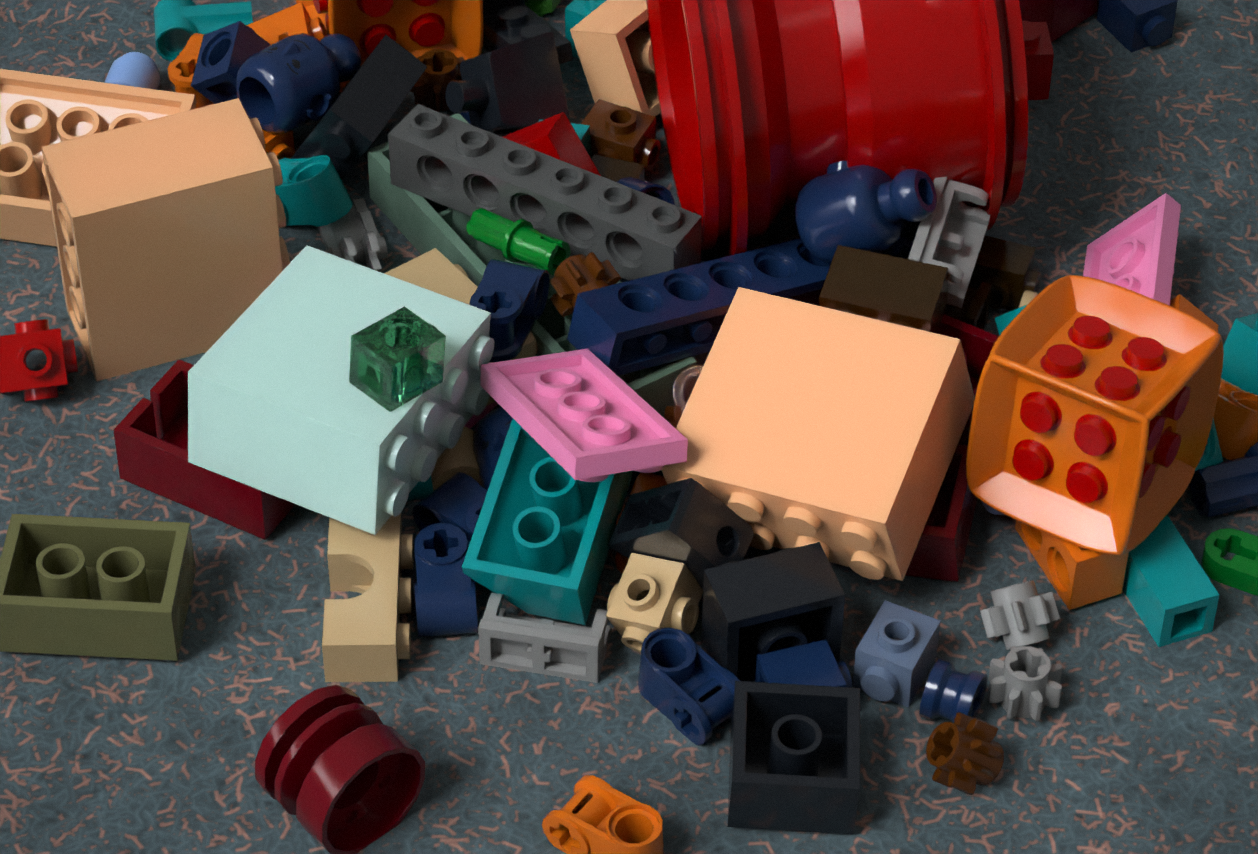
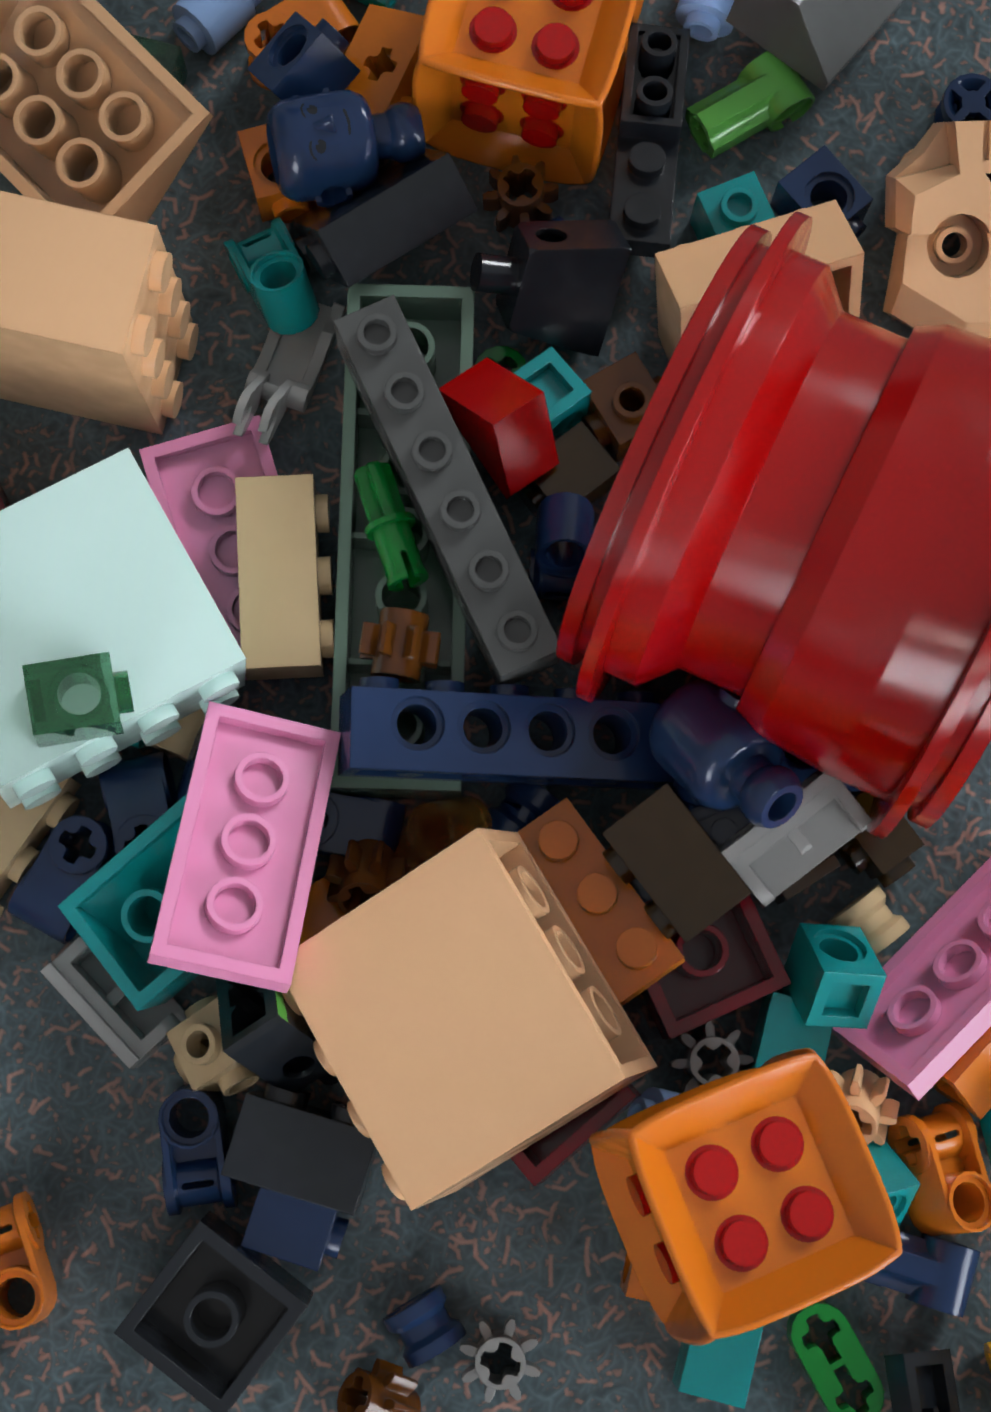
camera: 30 degrees right, 35 degrees up
(515, 299) = (312, 615): dark blue piece -> none
(896, 654) = (405, 1247): sand blue brick -> none
(1020, 614) = (554, 1280): light grey gear -> none

